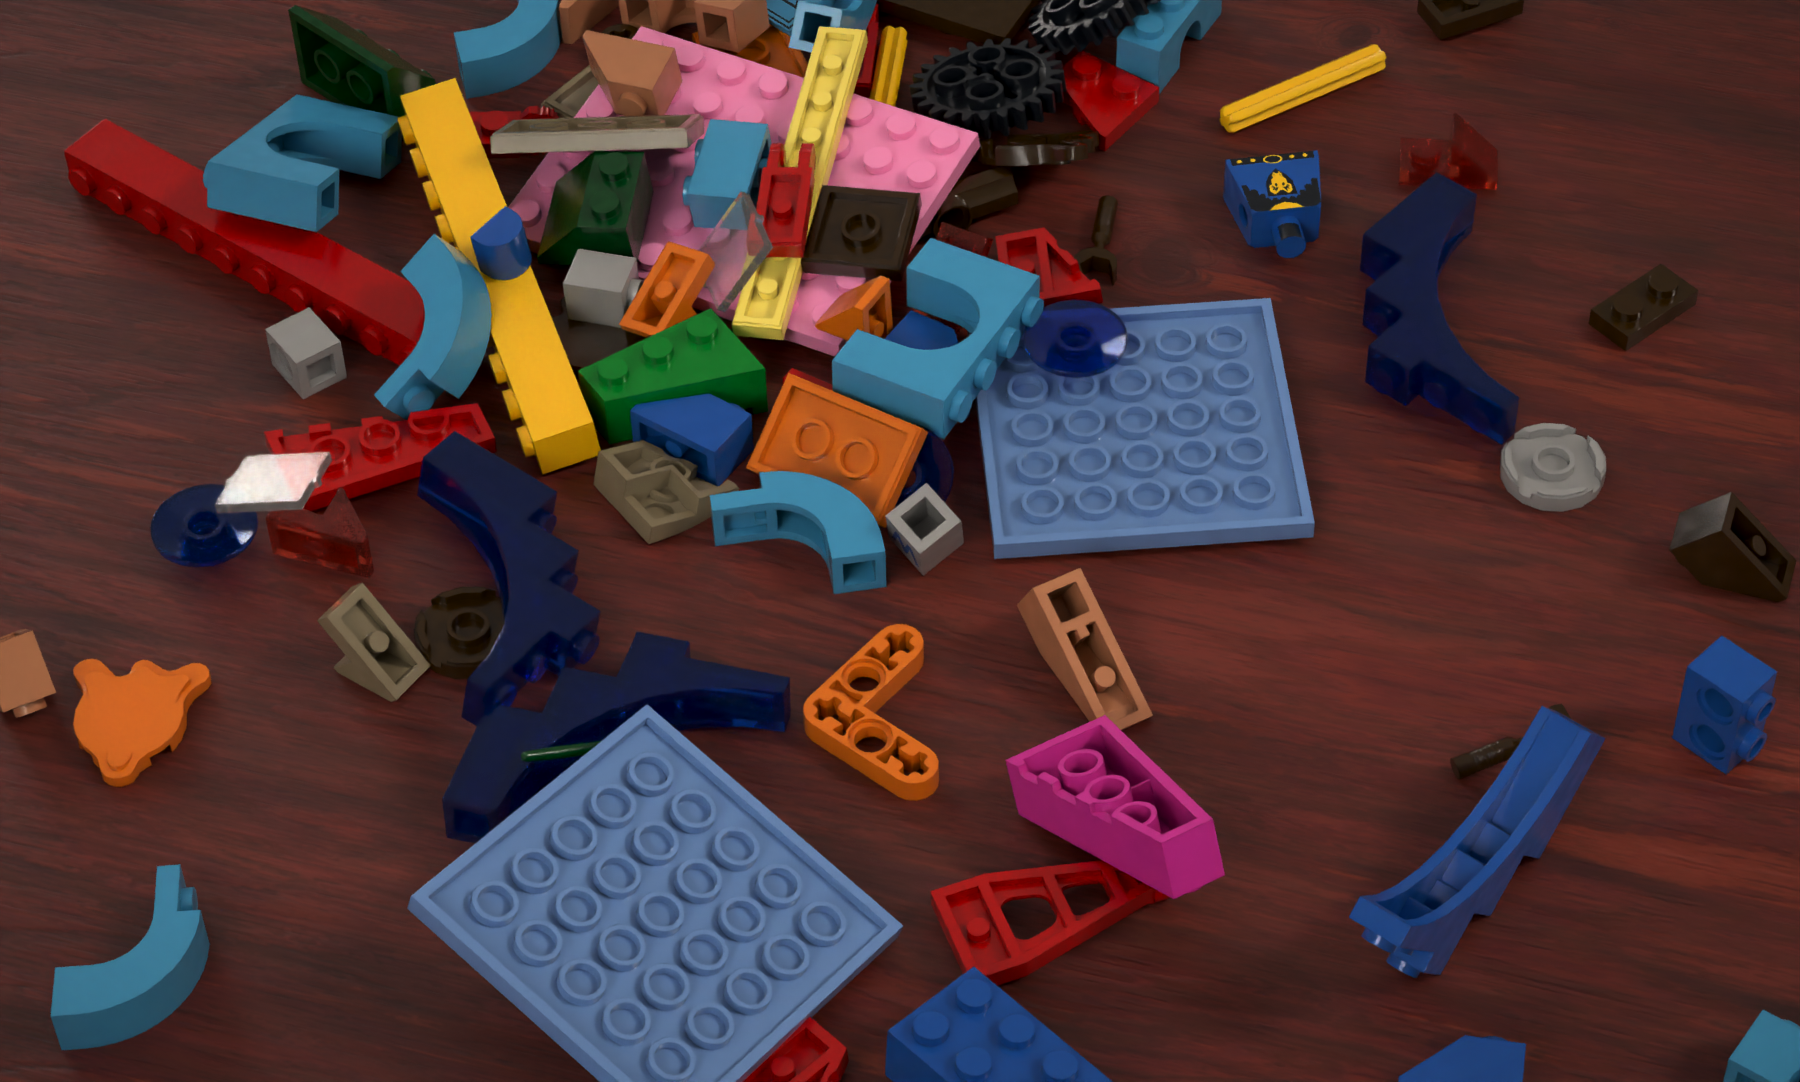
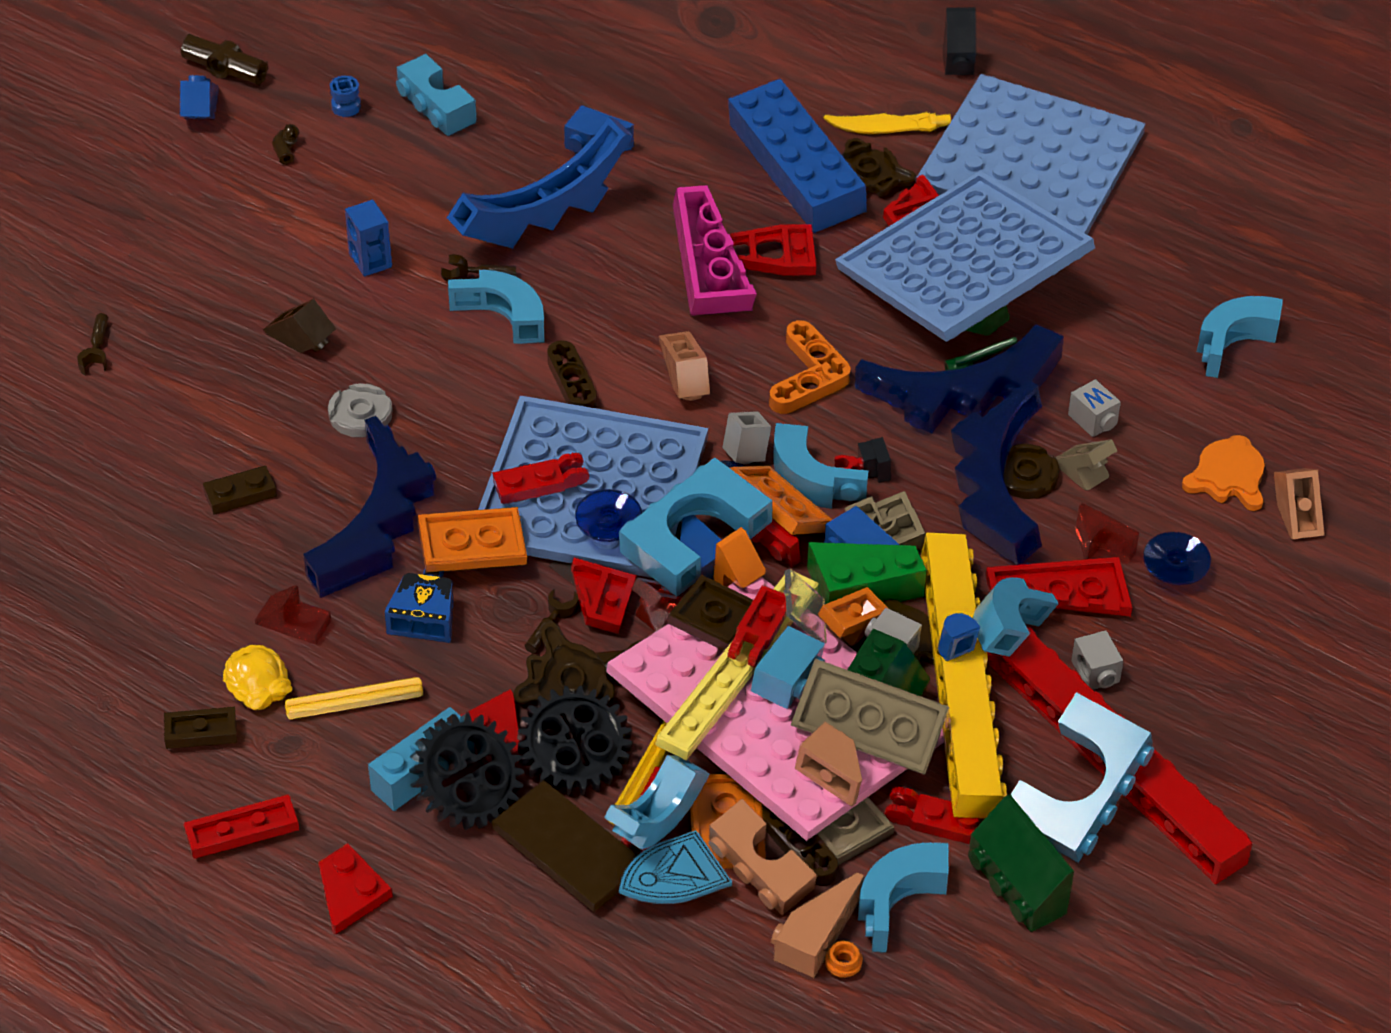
camera: 165 degrees left, 0 degrees up
(273, 482) = (1131, 556): clear piece -> none
(373, 746) = (1094, 408): none -> light grey brick
(719, 569) = (871, 457): none -> black piece
(1209, 386) = (540, 478): none -> red hinge
(1257, 276) = (472, 539): none -> orange tile
(1262, 619) = (572, 366): none -> dark brown beam
(1430, 694) = (504, 295): none -> dark azure arch
(1441, 71) = (256, 676): none -> yellow hair

